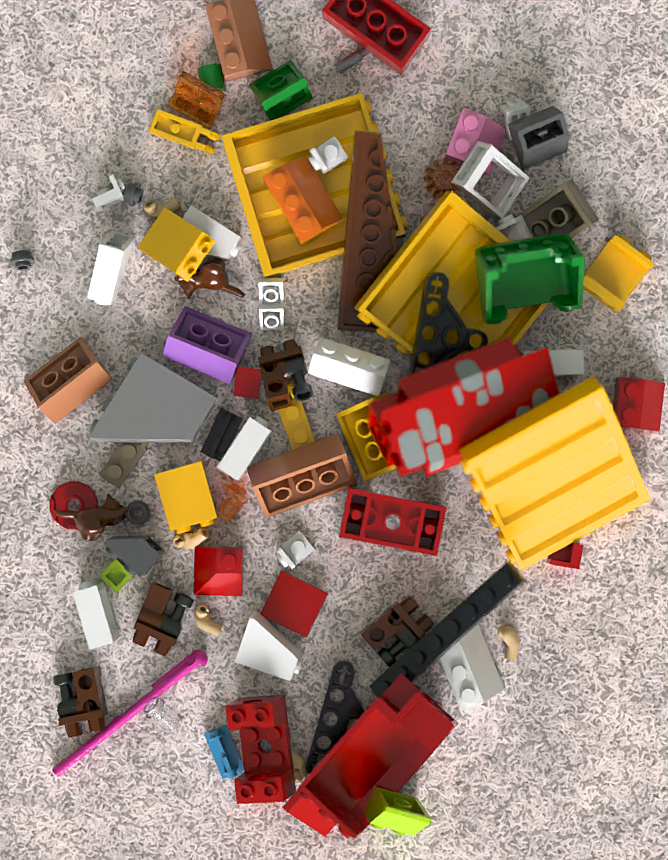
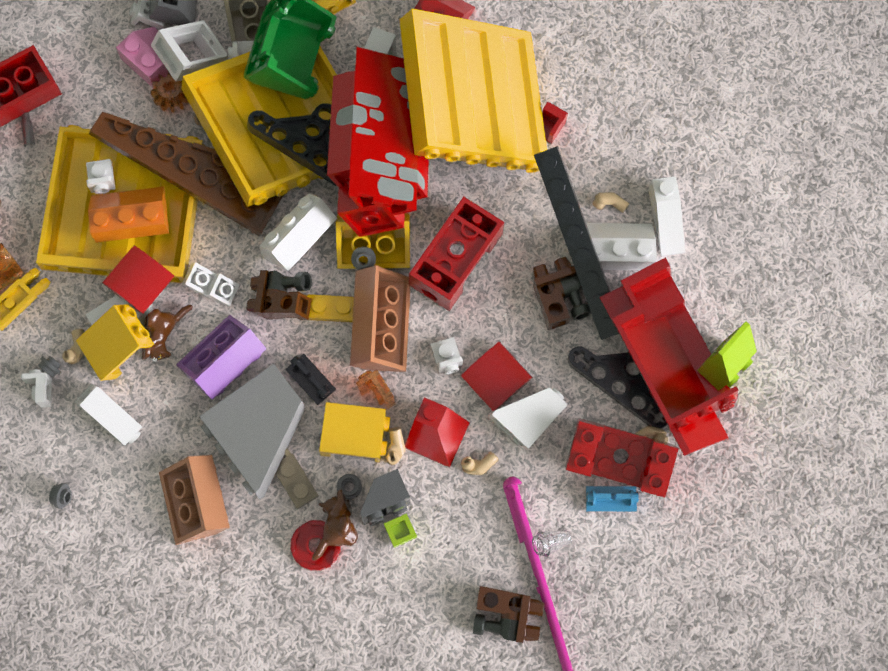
camera: 70 degrees left, 15 degrees down
(96, 613) = (427, 560): white window -> none
(156, 623) = (461, 511): reddish brown hips -> none
(241, 239) = (138, 279): none -> red slope
(245, 447) = (331, 355): white window -> none
(247, 382) = (273, 333): red panel -> none
(281, 90) = (22, 196): green bracket -> none
(356, 433) = (363, 251): none -> dark grey plate
(516, 702) = (667, 215): none -> white slope

